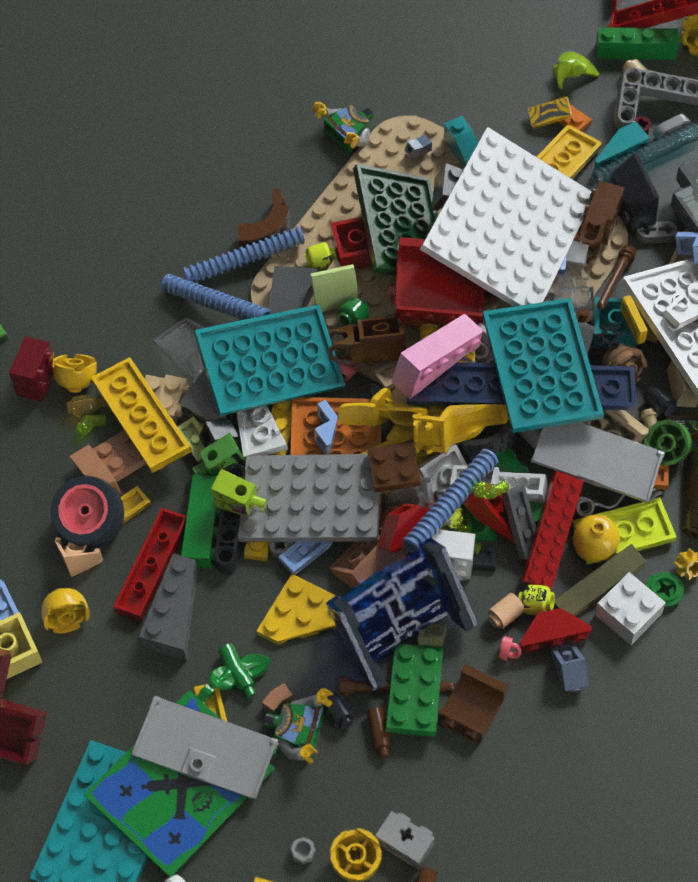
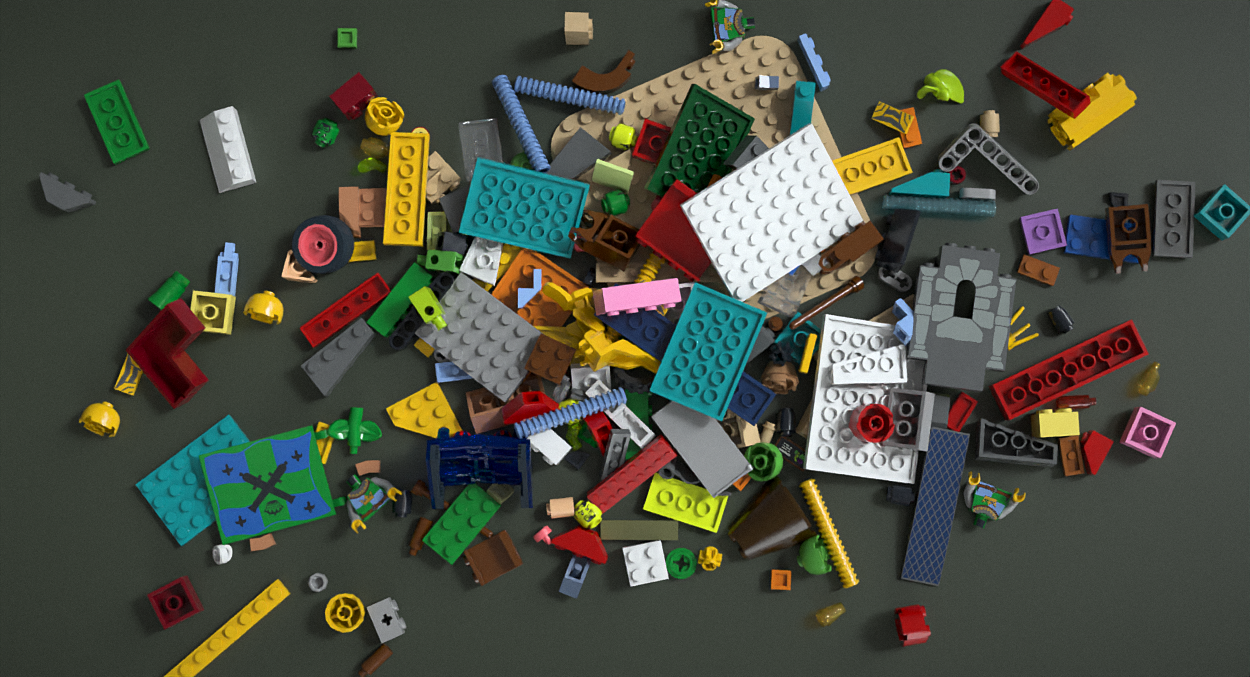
camera: 30 degrees right, 25 degrees up
(23, 419) = (325, 132): none -> green head
(205, 747) = (296, 474): light grey door -> none
(213, 193) = (578, 28): none -> tan brick
(213, 849) = (262, 542): none -> nougat piece
(441, 110) = (814, 62): none -> light blue plate
(490, 490) = (600, 425): clear neon green arm -> none
(596, 538) = (658, 499): yellow cylinder -> none
(637, 43) = (1011, 96): green brick -> none

